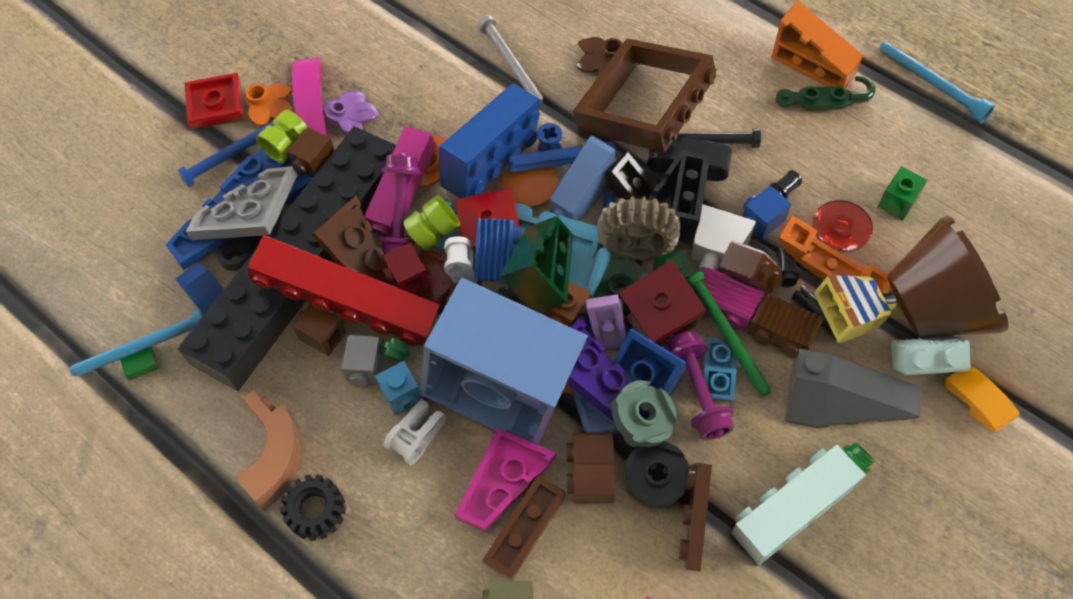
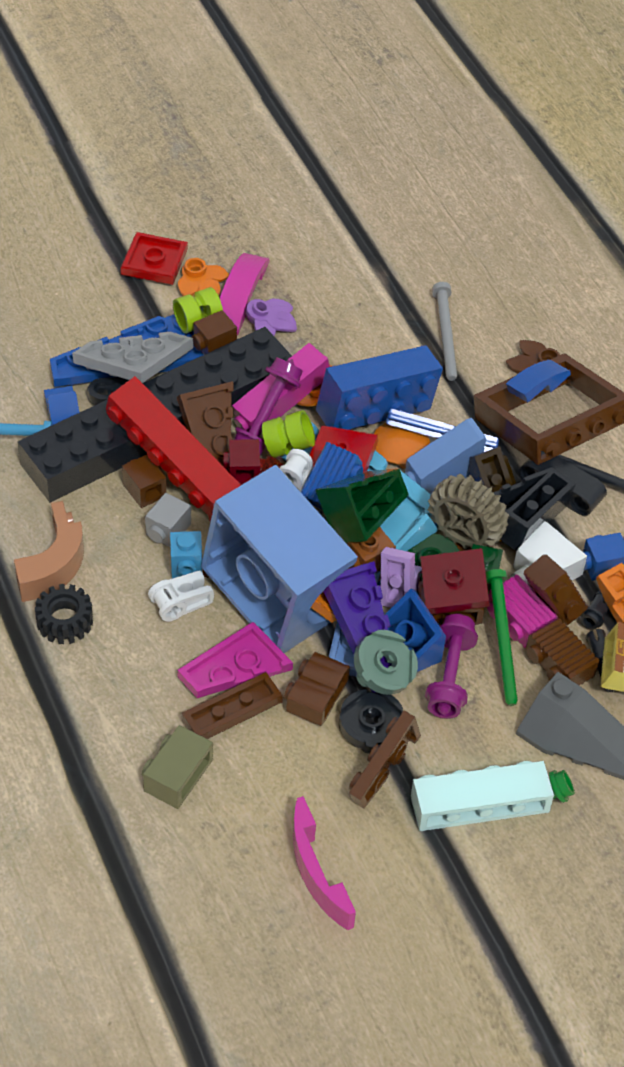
camera: 20 degrees right, 10 degrees down
(219, 157) = (130, 308): blue bar -> none
(394, 349) = (199, 522): green plate -> none
(549, 137) = (440, 408): blue bush -> none
(622, 72) = (537, 377): none -> blue slope
(719, 369) = (479, 666): dark azure slope -> none

